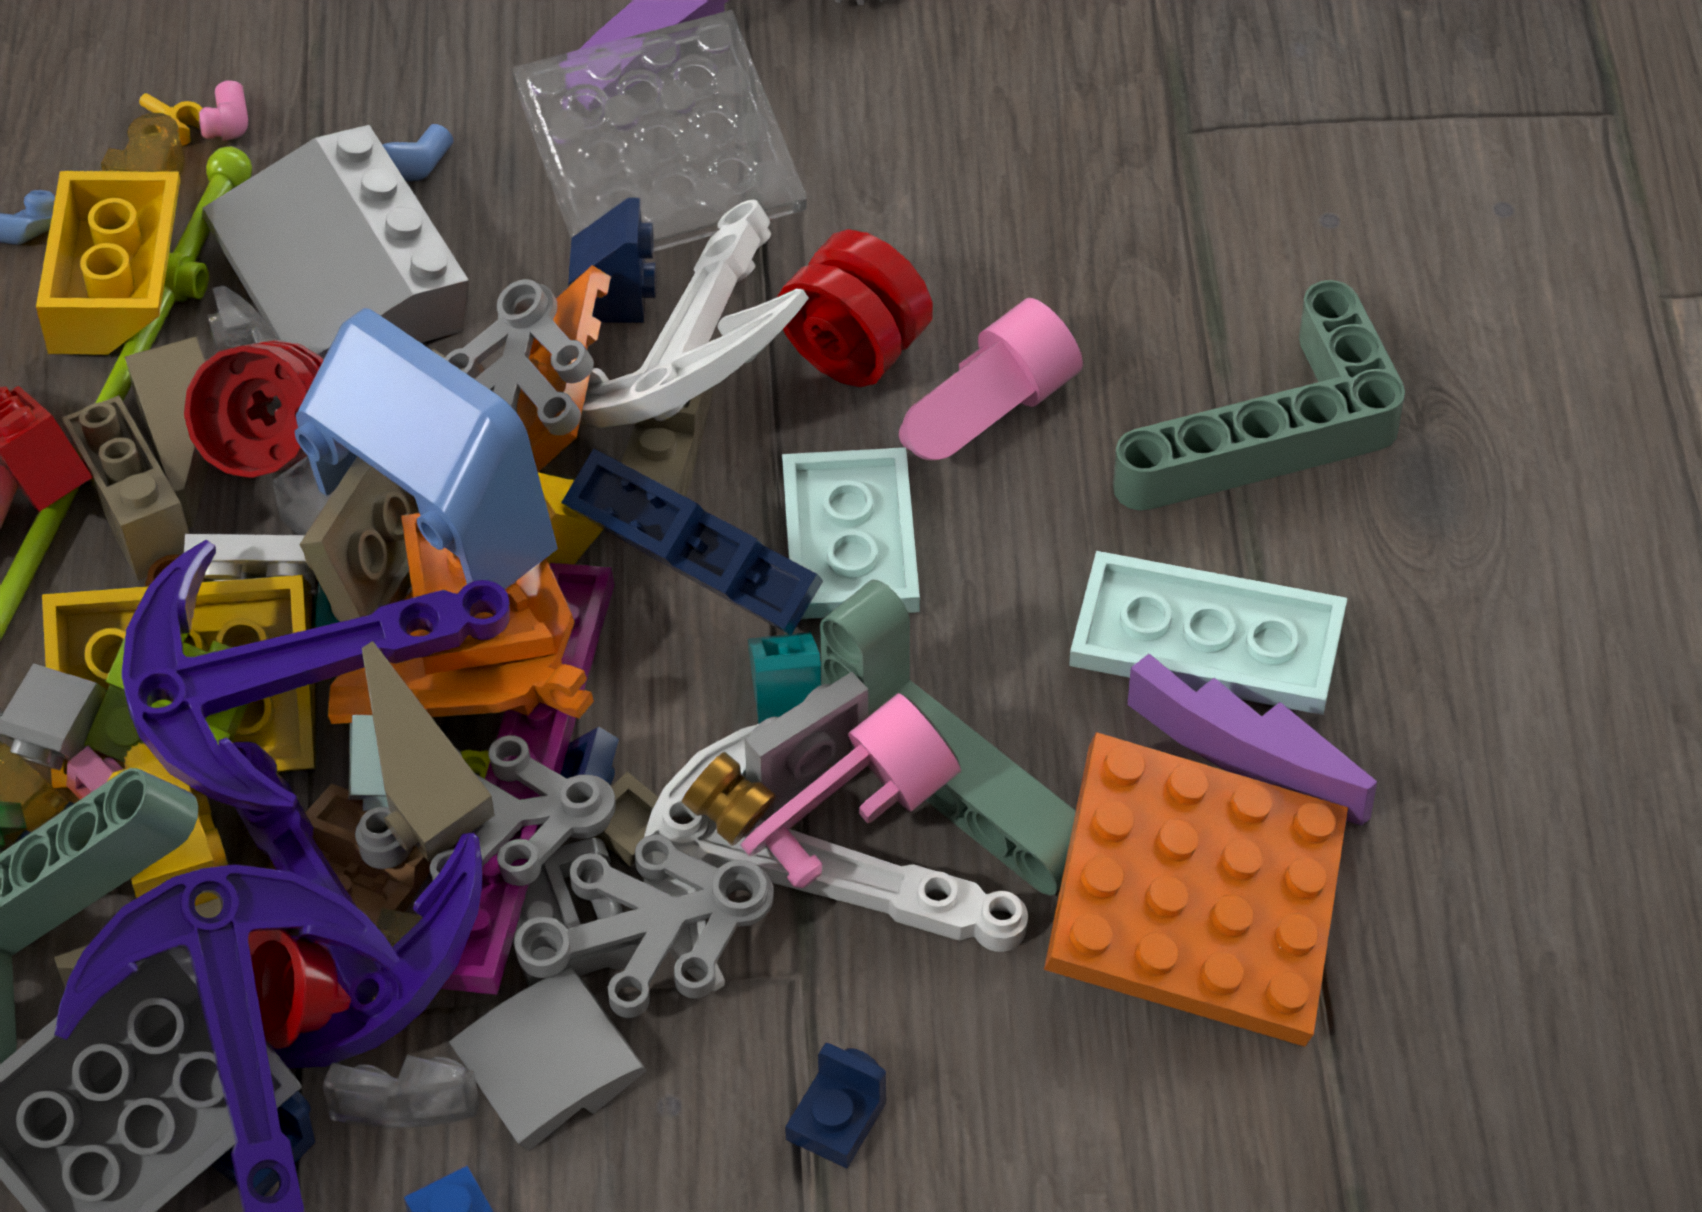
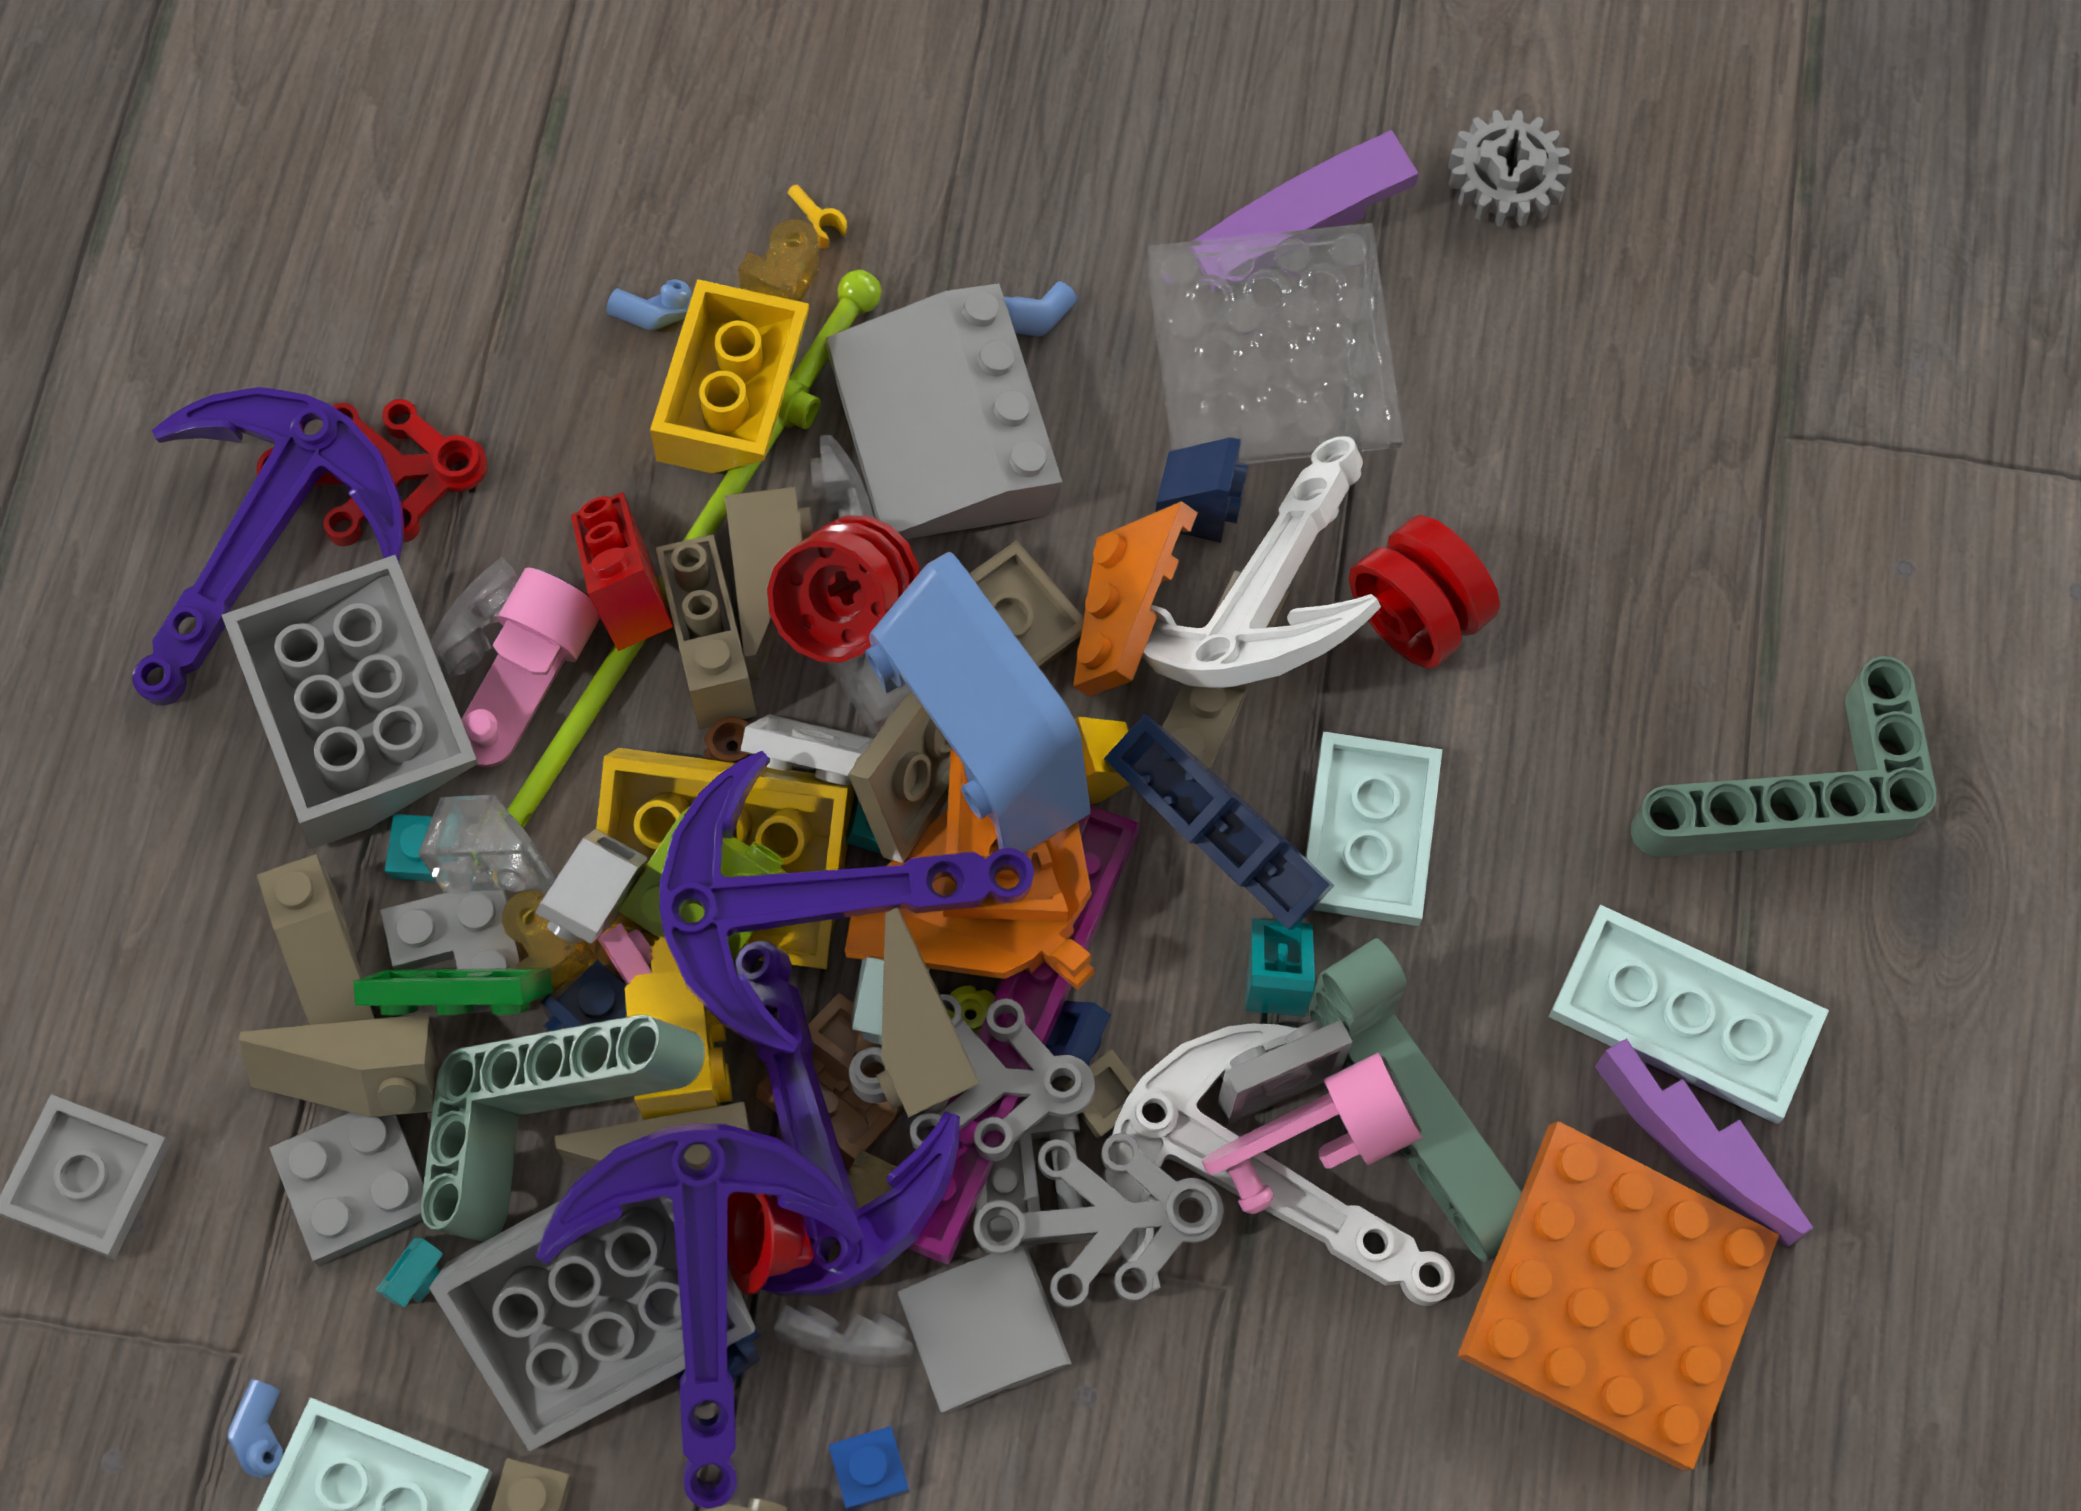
camera: 10 degrees right, 15 degrees up
(229, 117) = (873, 226): bright pink arm -> none
(524, 314) = (1084, 600): light grey plant -> none
(728, 798) = (1212, 1119): pearl gold wheel -> none
(839, 1105) = (1239, 1440): dark blue bracket -> none
(1017, 362) = (1563, 683): bright pink piece -> none

